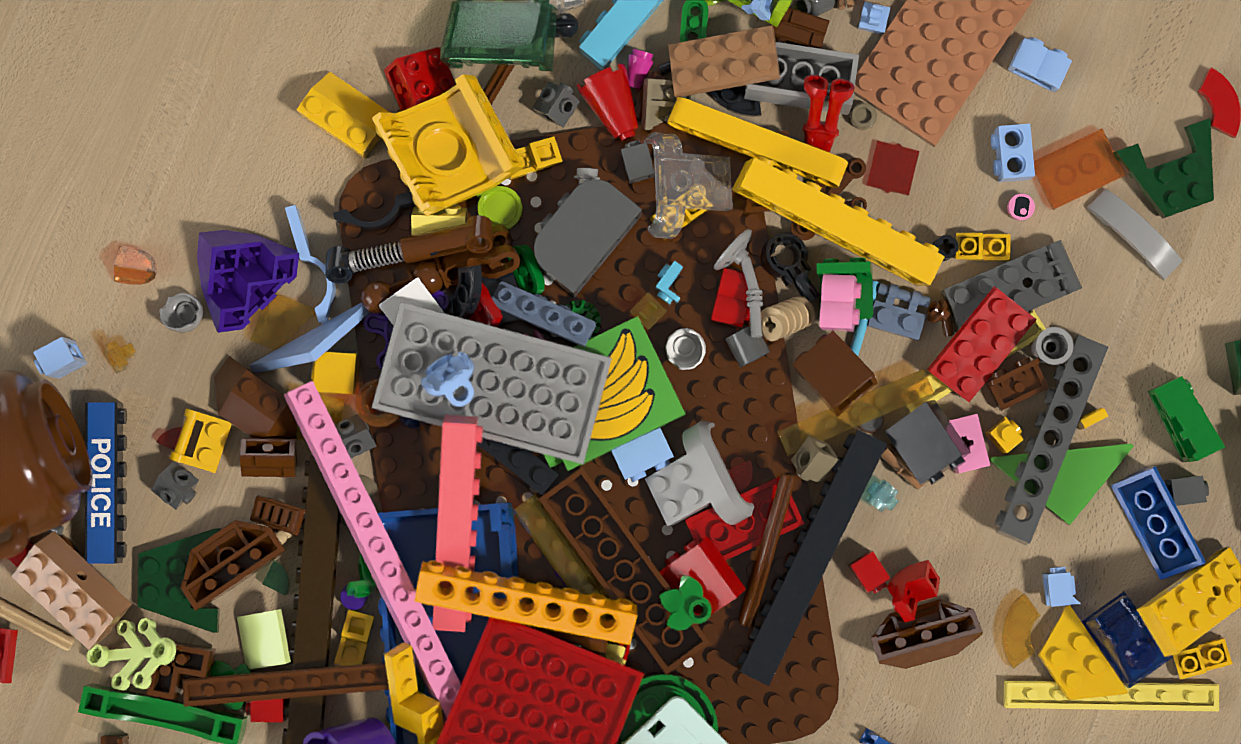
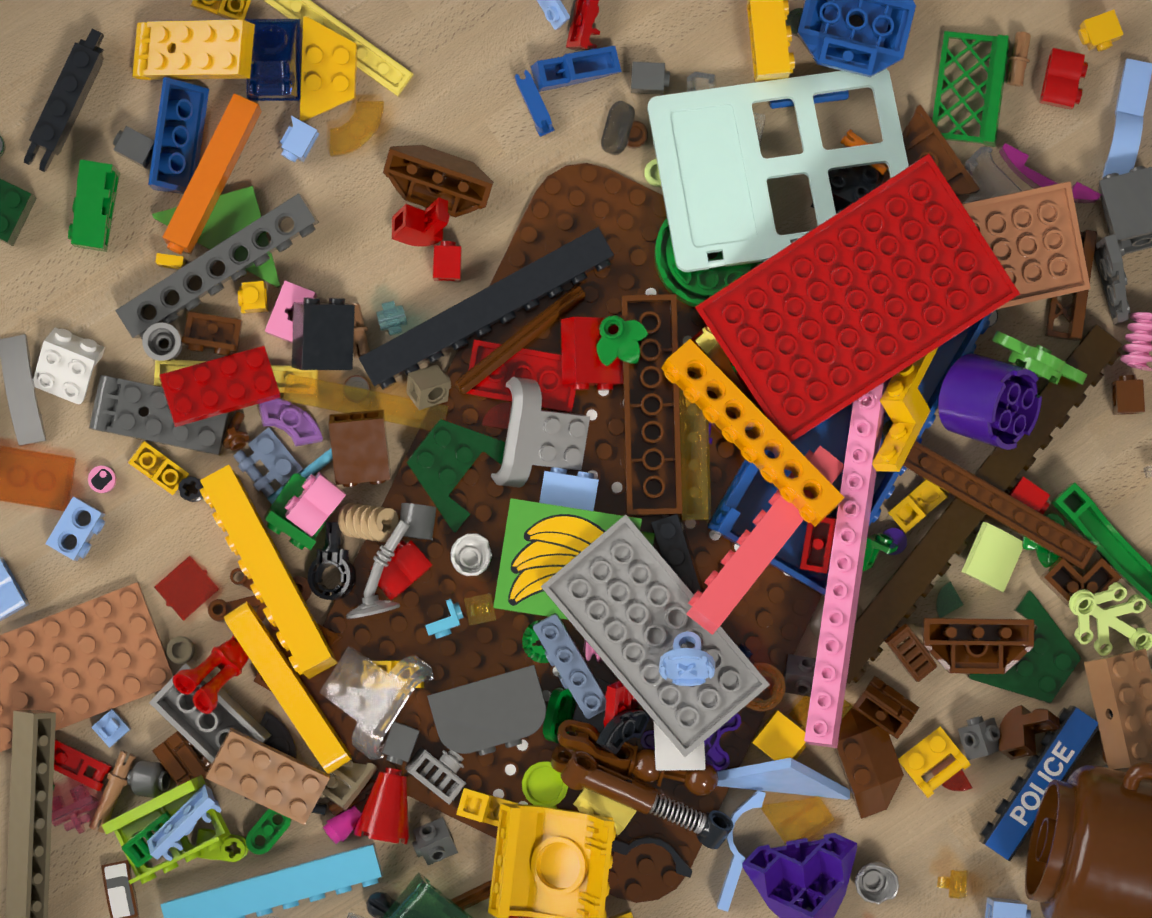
camera: 140 degrees left, 0 degrees up
(149, 515) = (1019, 730): none -> reddish brown brick
(409, 548) = (818, 545): none -> red brick
(614, 160) = (416, 761): none -> light grey slope
(760, 410) = (445, 459): none -> dark green wing
(904, 358) = (292, 420): none -> medium lavender tile
(1109, 510) = (211, 174): none -> orange brick
(1114, 278) = (66, 365): none -> white bracket

